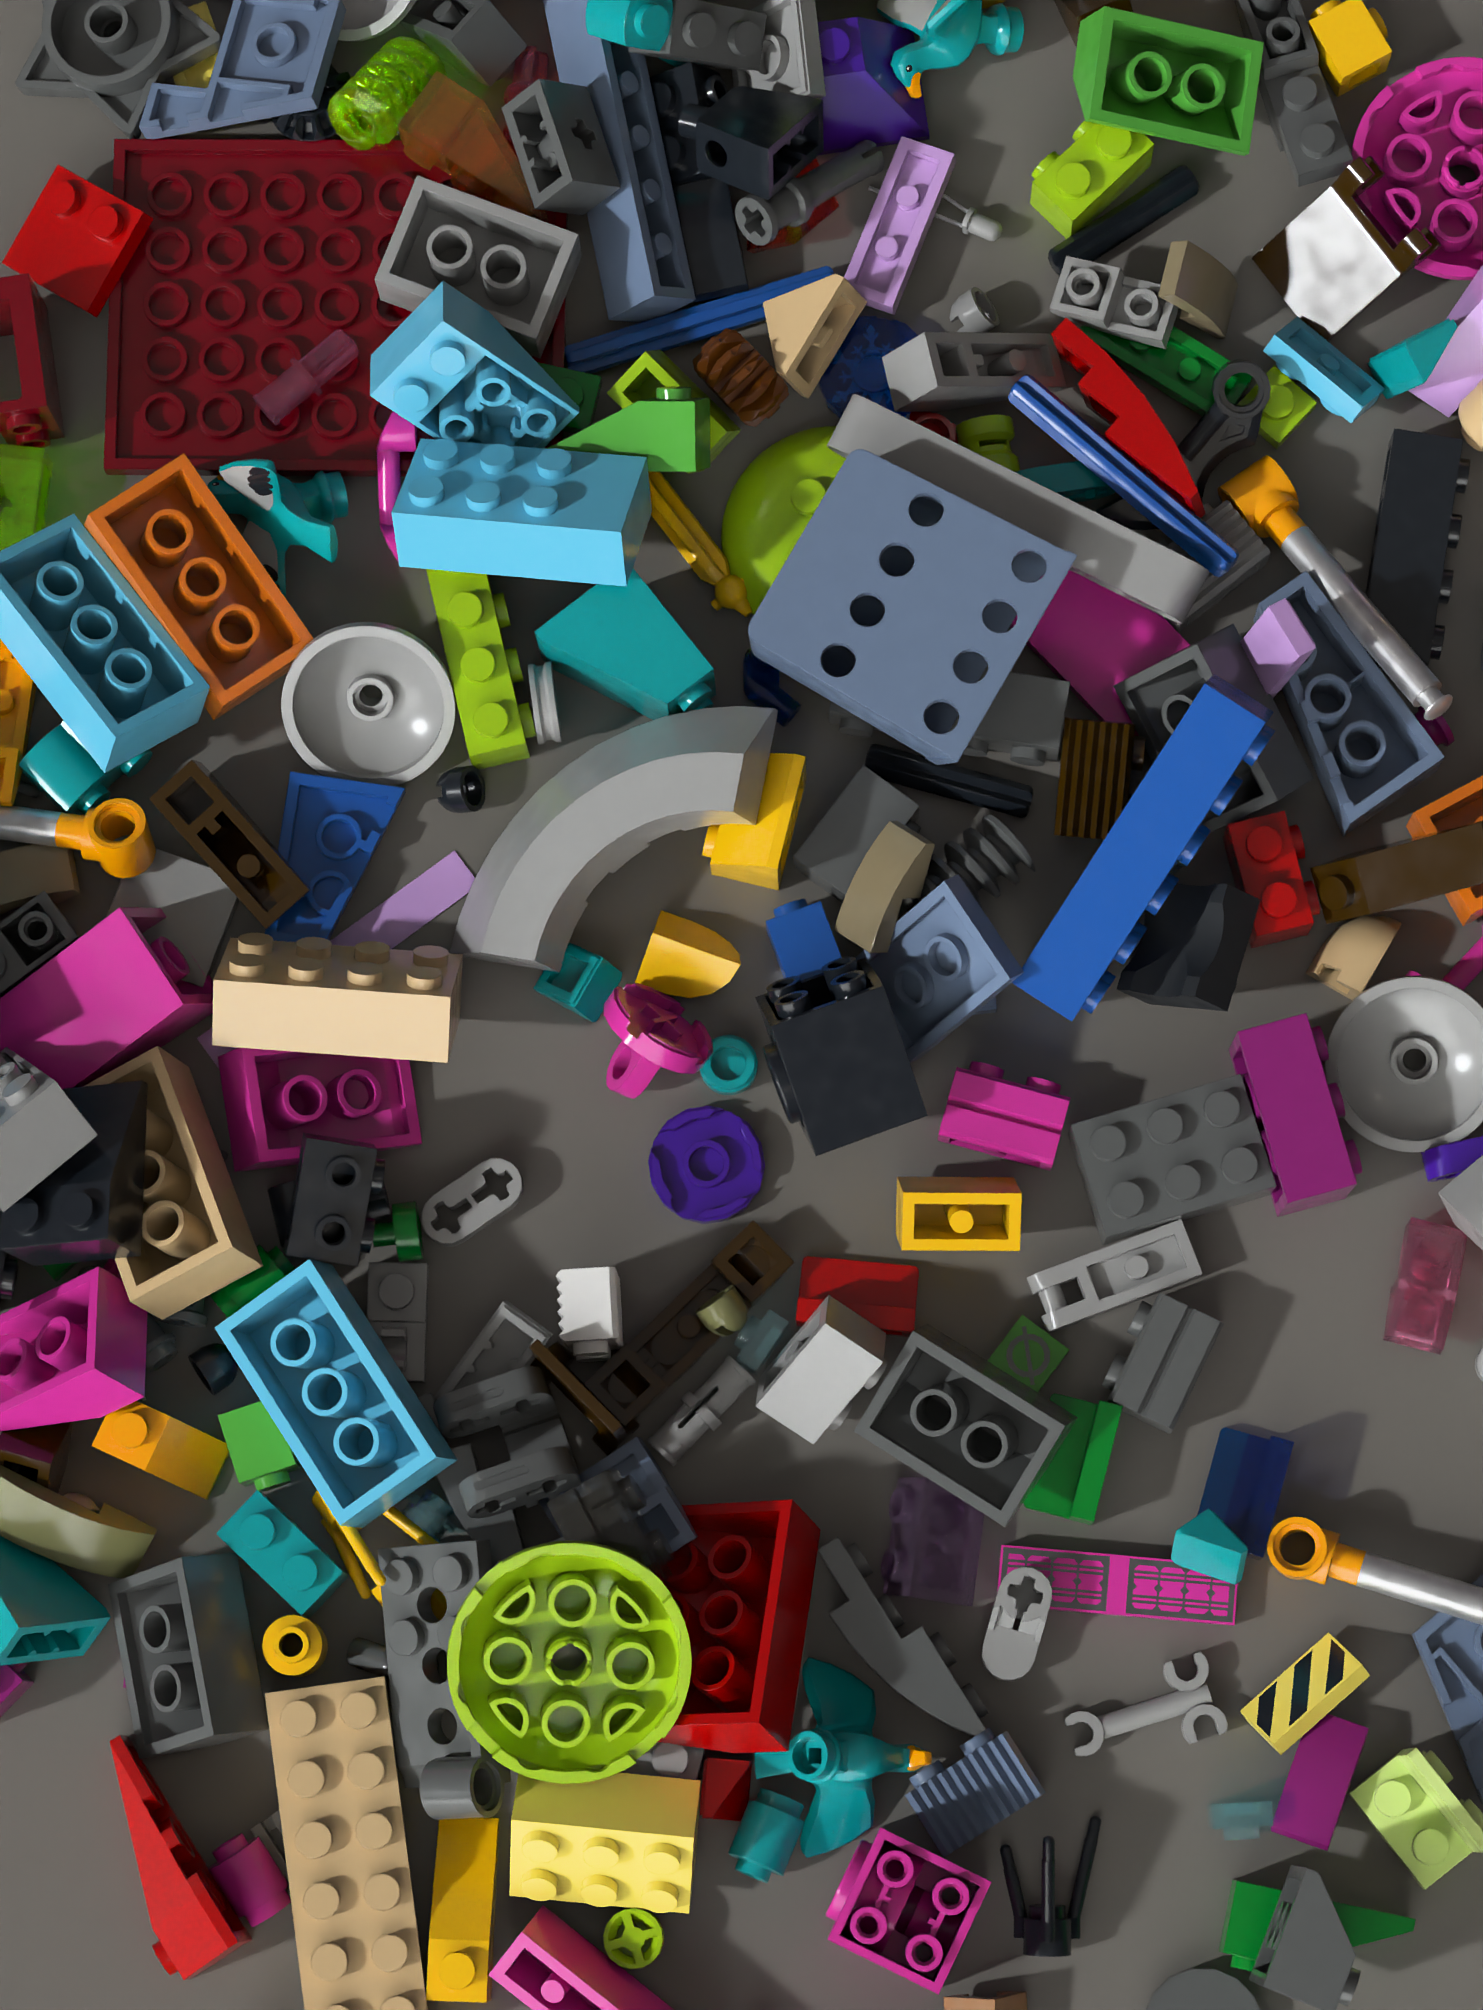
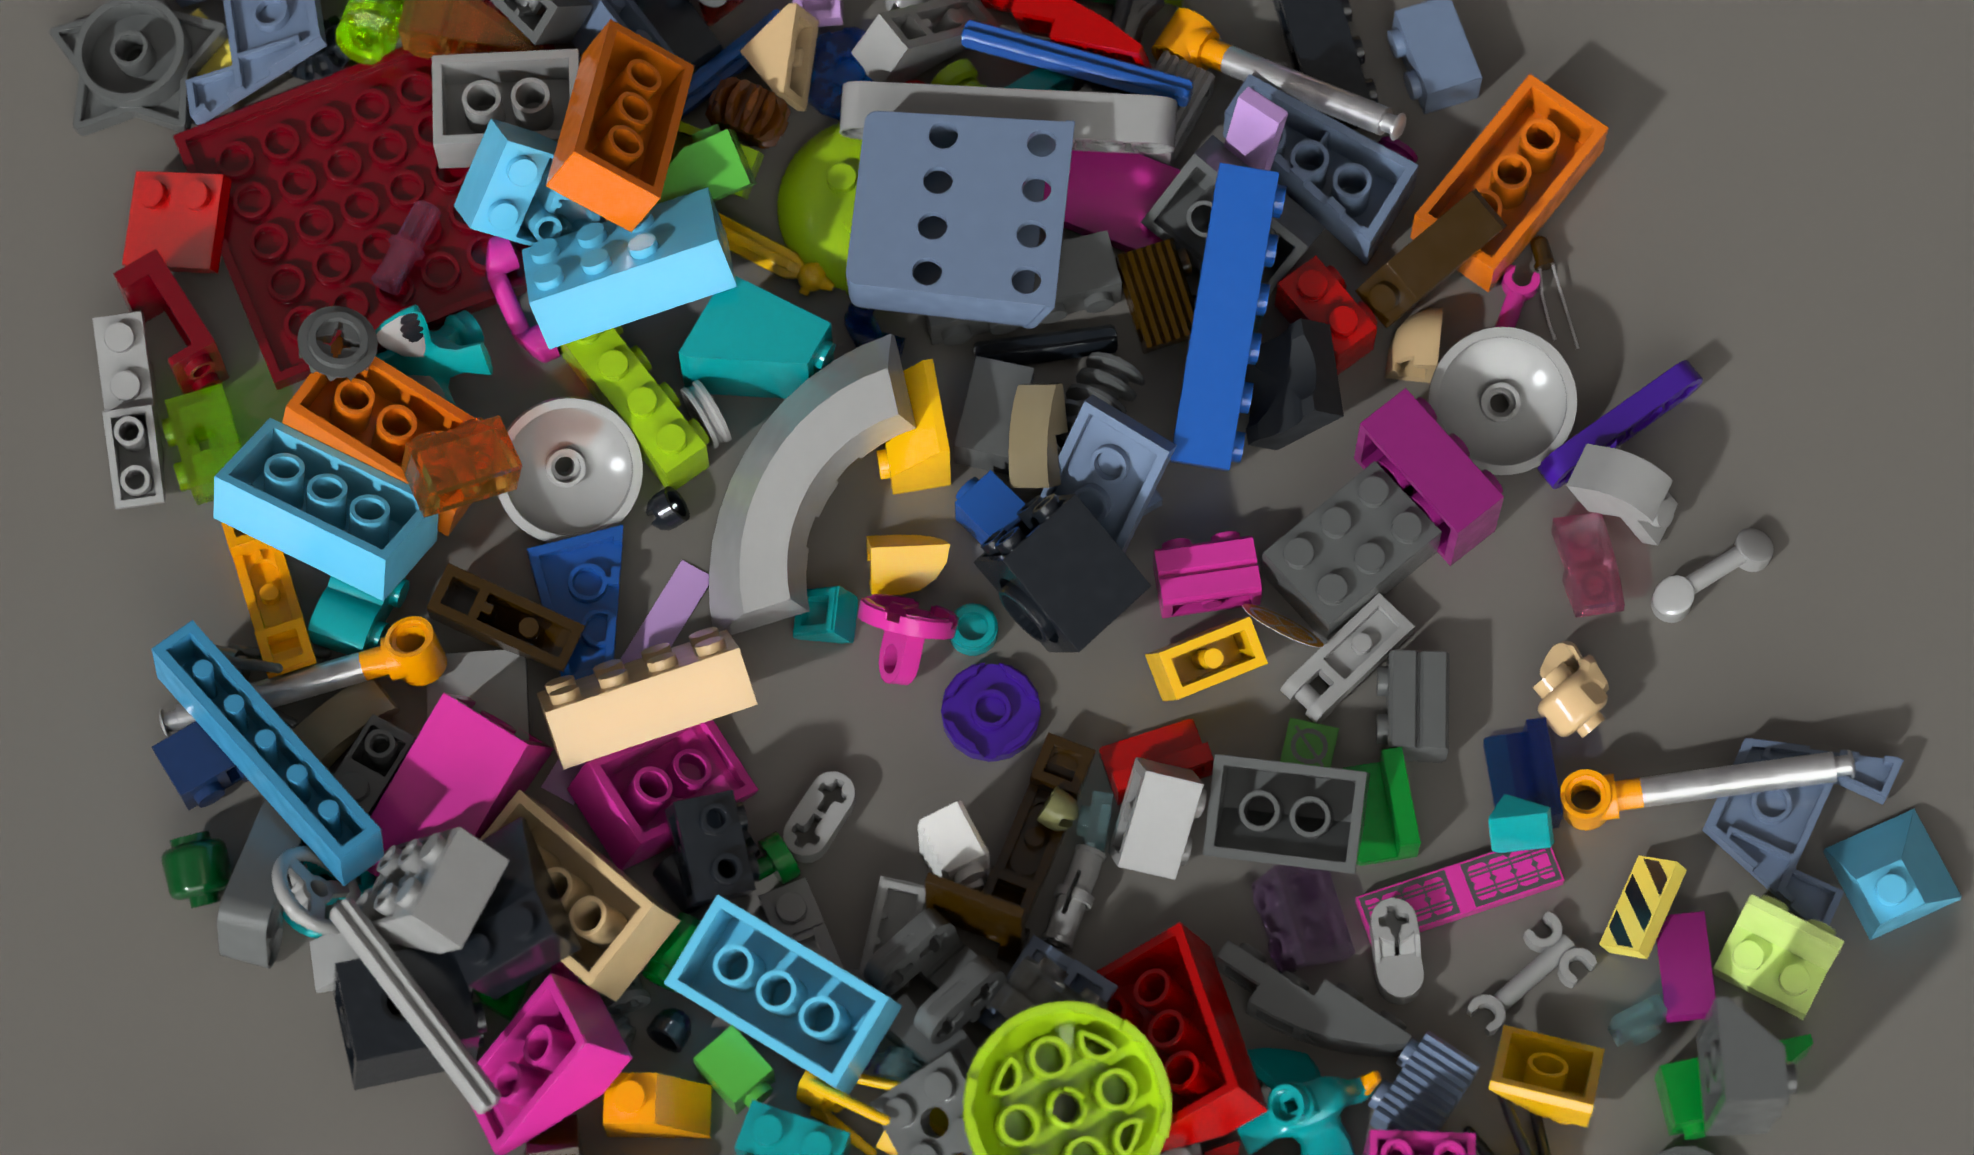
camera: 30 degrees left, 10 degrees down
(164, 440) = (356, 334): none -> dark grey gear
(244, 661) = (461, 465): none -> clear orange brick
(578, 350) = (620, 126): none -> orange brick
(1058, 1212) = (1283, 625): none -> light orange sticker
(1109, 1836) = (1547, 1075): none -> yellow slope
(1337, 1422) = (1571, 691): none -> tan head

